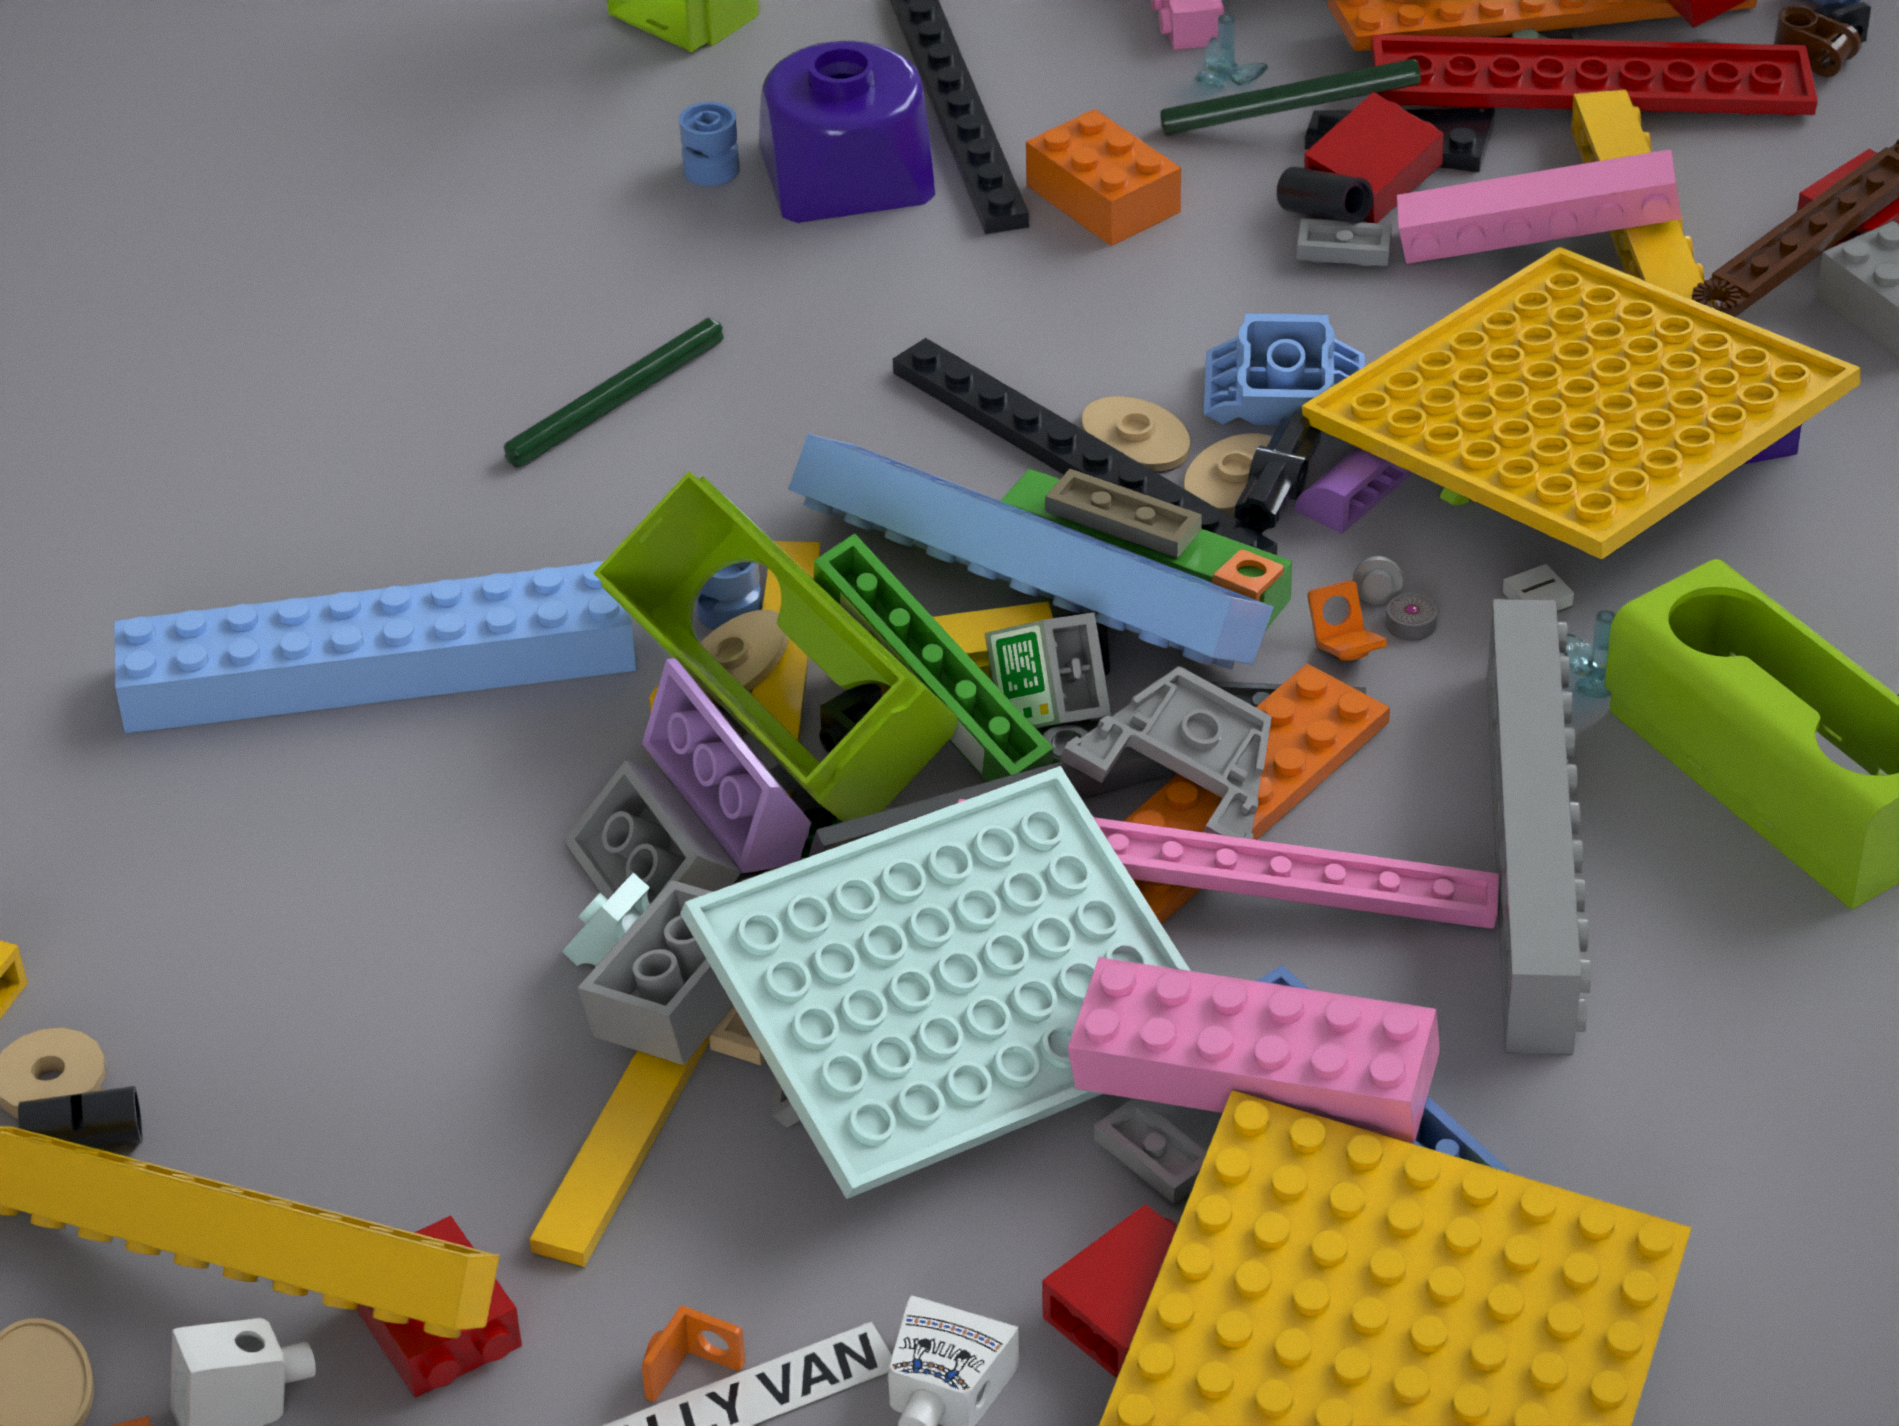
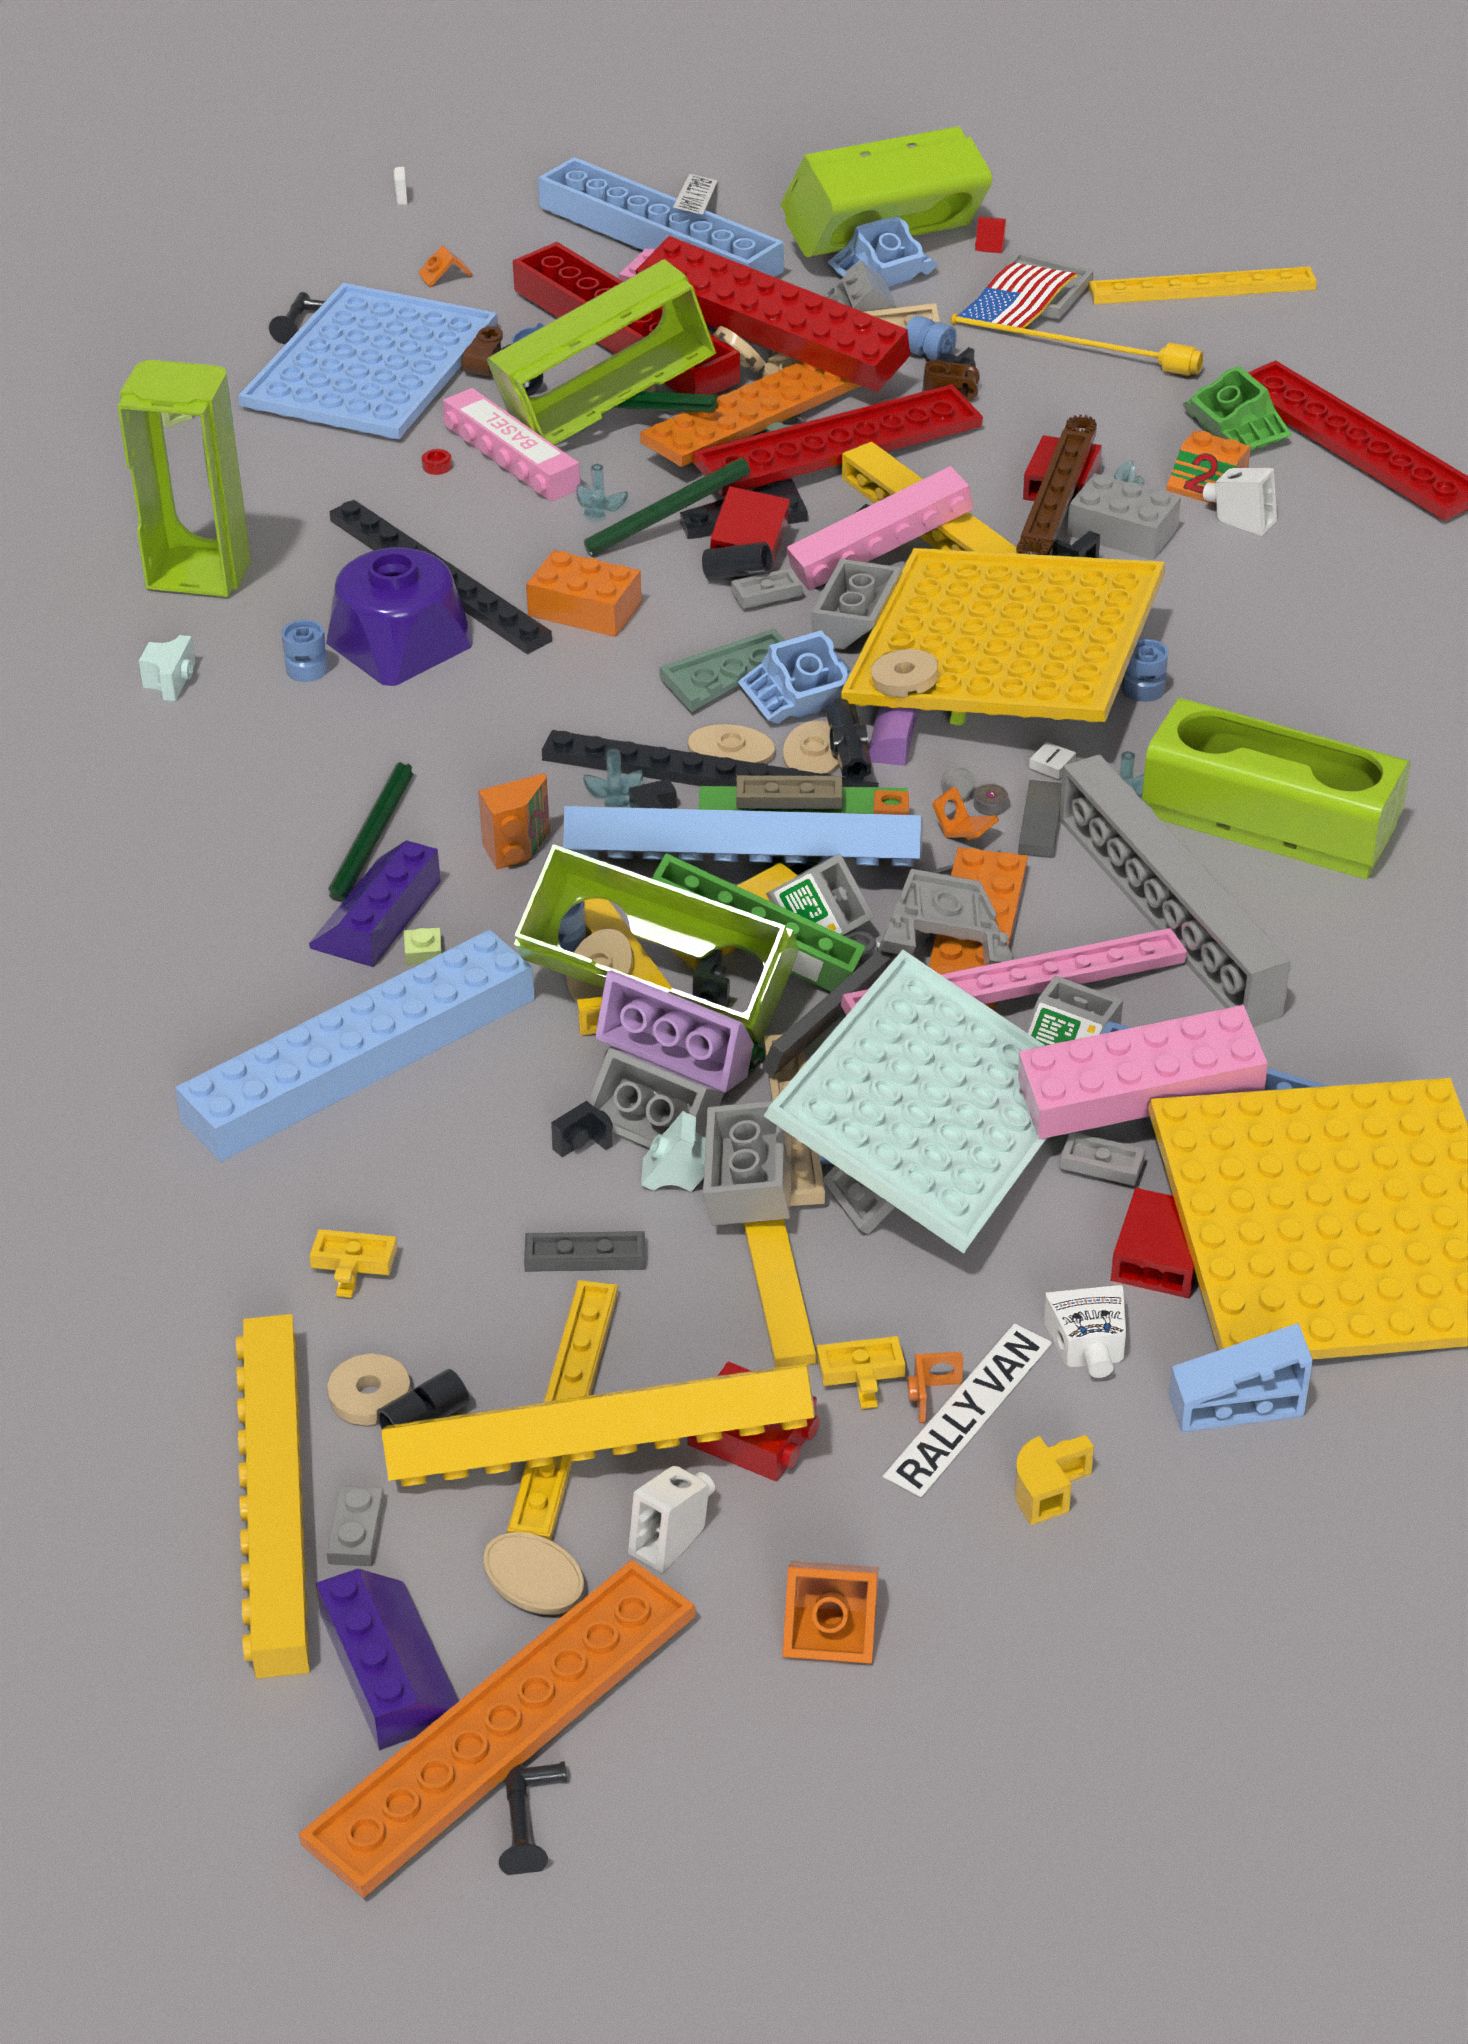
camera: 30 degrees left, 0 degrees up
(160, 900) = (352, 1254): none -> yellow plate
(274, 1167) = (572, 1377): none -> yellow tile
(429, 1008) = (584, 1251): none -> dark grey tile
(539, 850) = (580, 1126): none -> black bracket
(547, 113) = (167, 666): none -> light aqua brick
(547, 488) = (380, 904): none -> dark purple slope
(557, 549) = (421, 944): none -> yellowish green plate
(624, 1288) = (861, 1363): none -> yellow plate
(766, 431) = (514, 819): none -> orange slope
(938, 430) = (616, 785): none -> clear light blue plant
(978, 465) = (656, 795): none -> black piece
(1185, 329) = (716, 671): none -> sand green wing
(1253, 935) = (1072, 1012): none -> slope
(1394, 404) = (904, 672): none -> tan tile
(1420, 290) = (853, 600): none -> light grey slope
(1448, 670) = (1040, 819): none -> dark grey tile
(1754, 511) = (1146, 671): none -> medium blue wheel
(1805, 323) = (1086, 546): none -> black bracket

